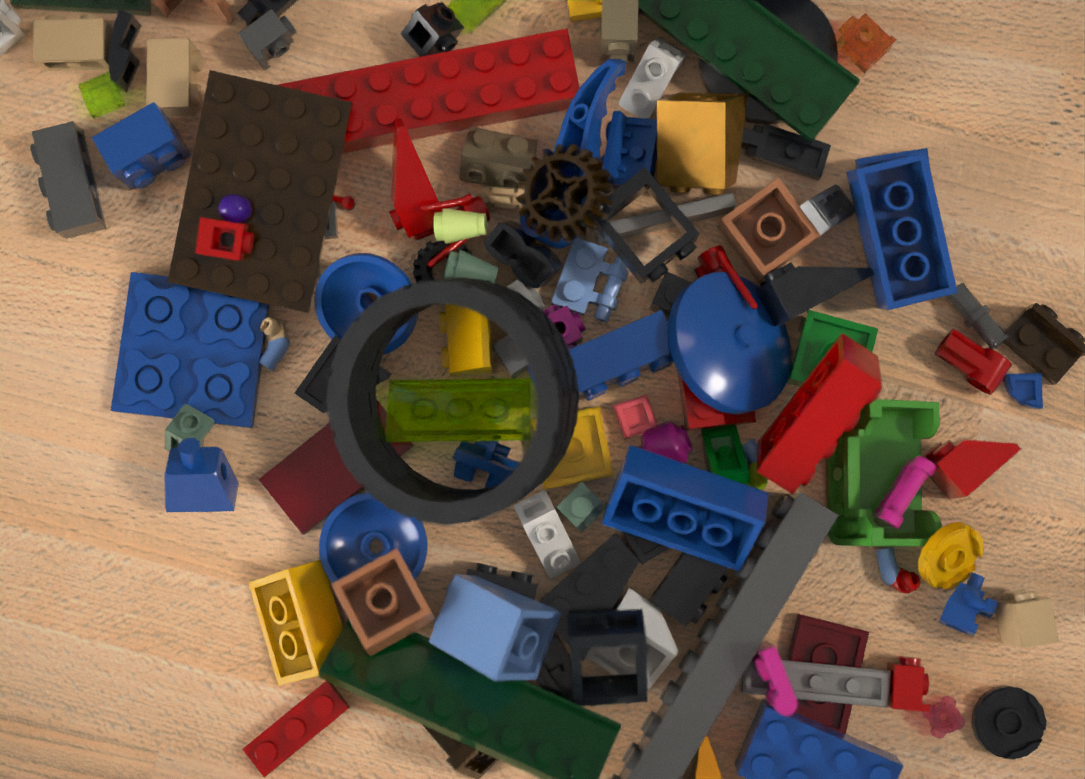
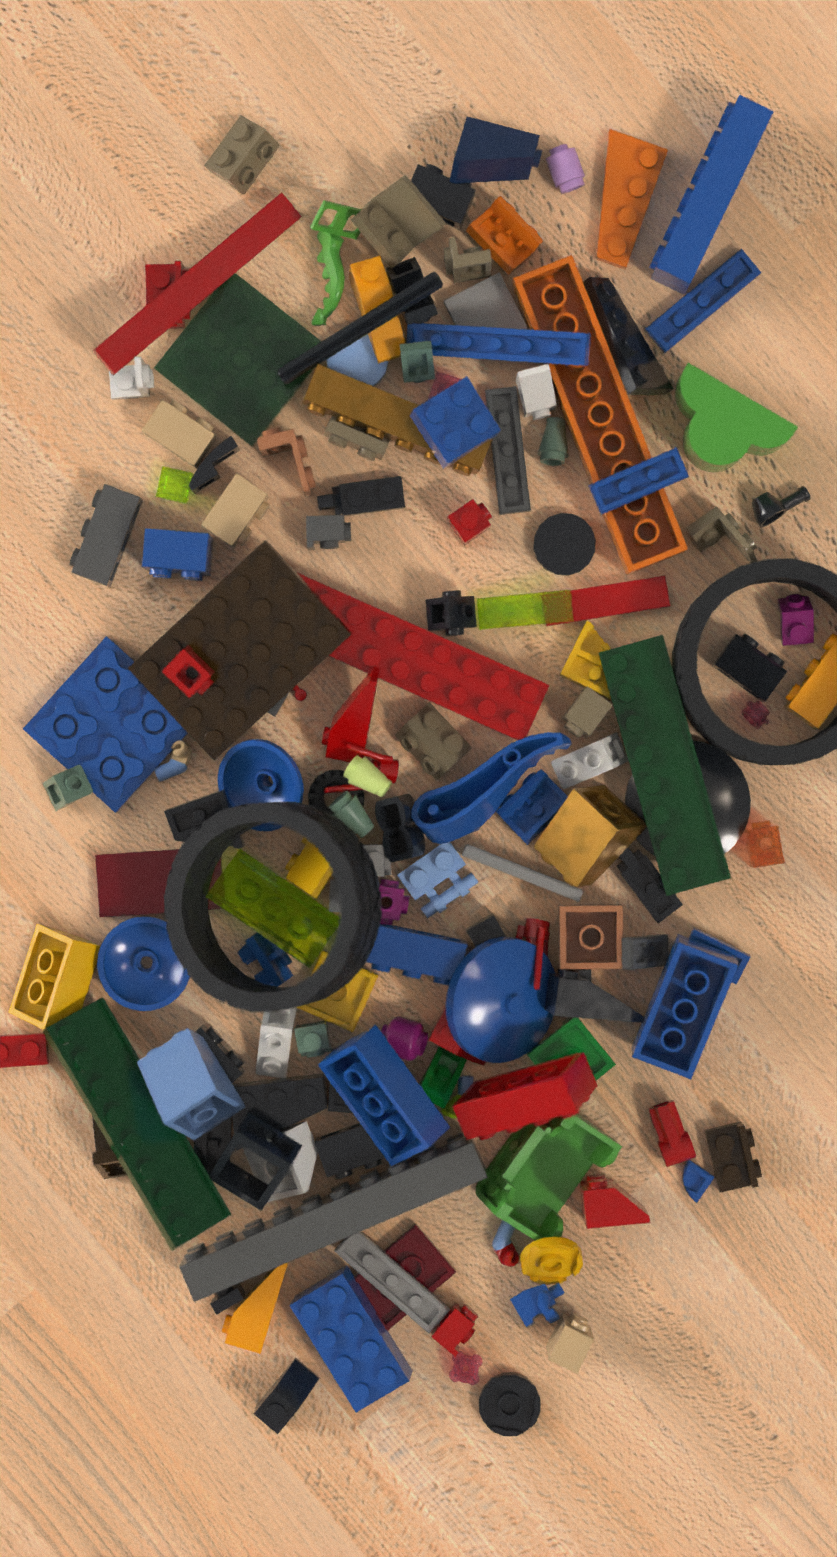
camera: 30 degrees right, 5 degrees up
(199, 479) = (52, 828): blue torso -> none
(235, 208) = (213, 655): dark purple piece -> none
(383, 602) = (124, 1012): nougat brick -> none
(500, 196) = (418, 777): tan axle -> none
(538, 201) = (458, 800): dark brown gear -> none
(622, 197) = (514, 908): black window -> none
(635, 416) = (399, 1000): coral tile -> none
(770, 668) = (362, 1250): dark pink plate -> none
(903, 491) = (548, 1192): dark pink plate -> none
(978, 317) = (698, 1104): dark grey pin -> none

